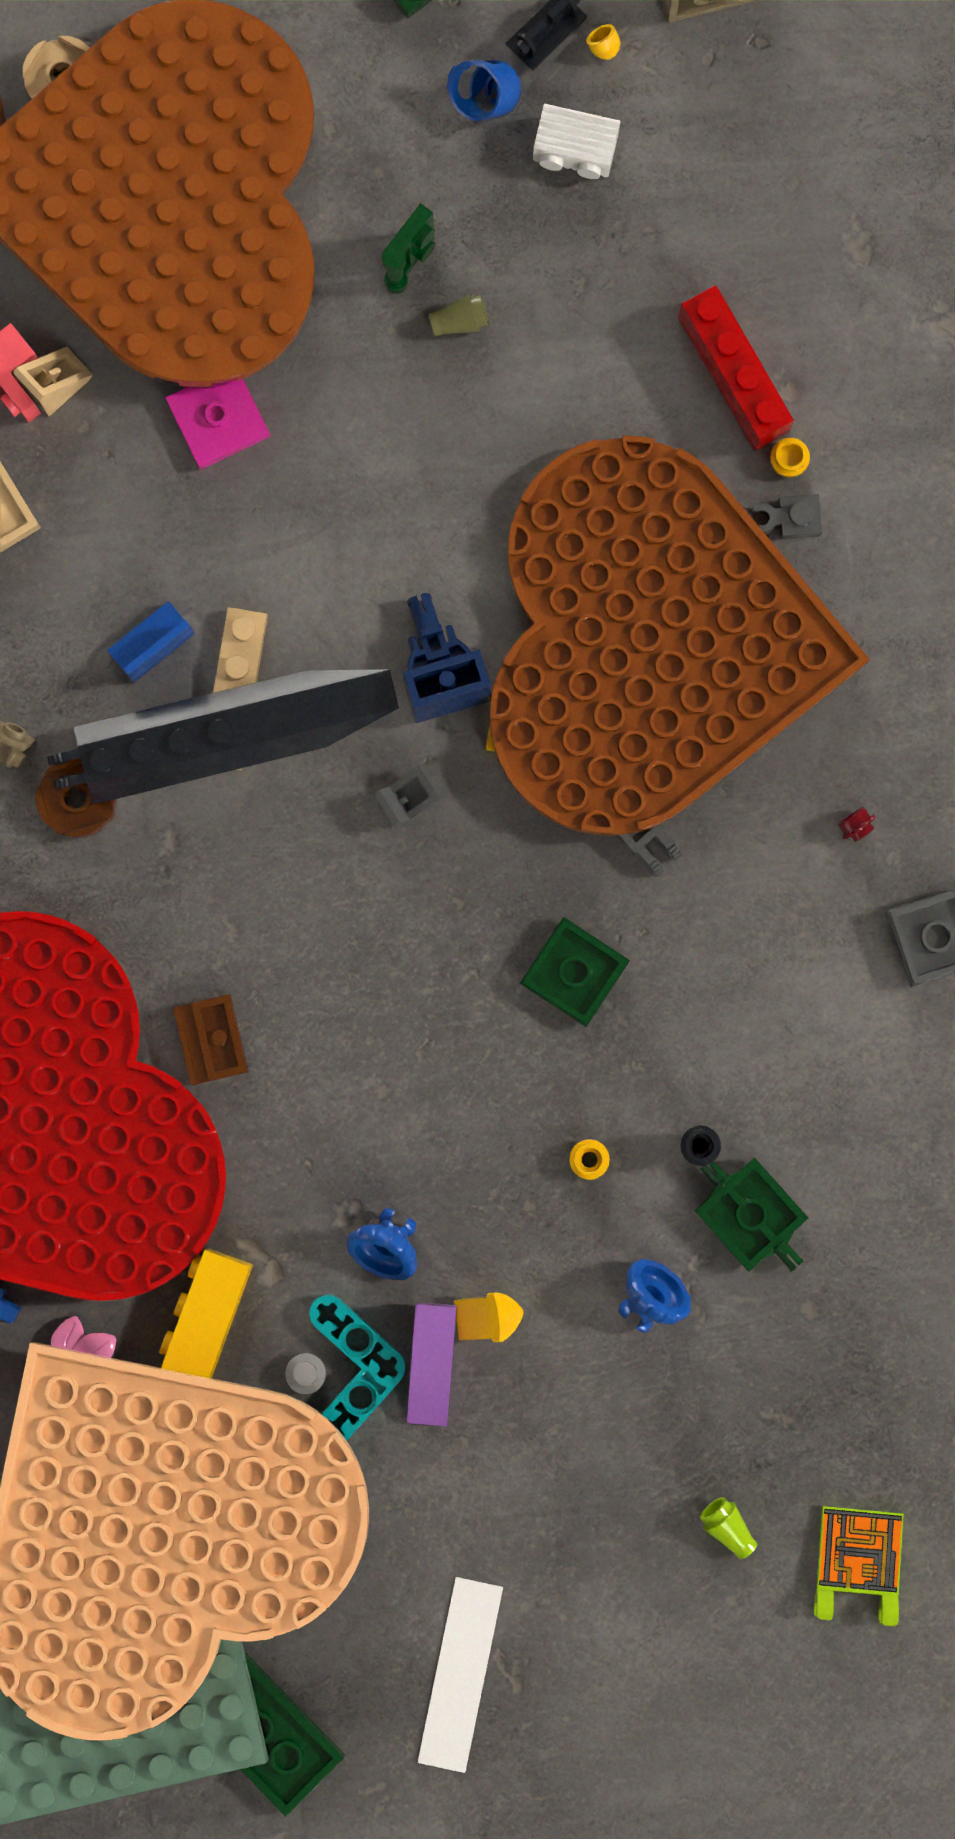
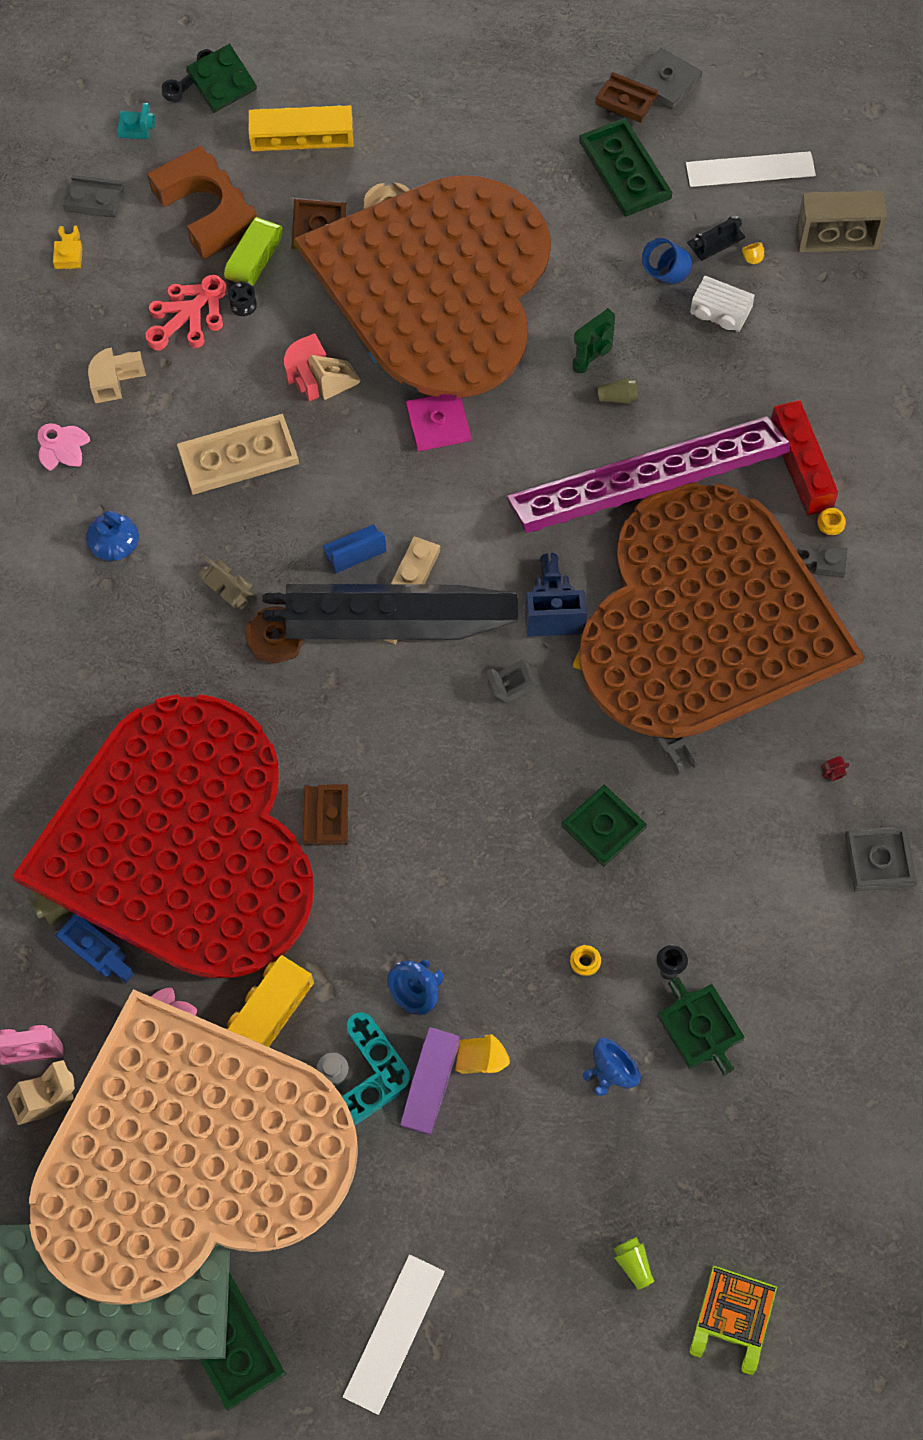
camera: 15 degrees right, 20 degrees down
(528, 443) = (647, 474): none -> magenta plate

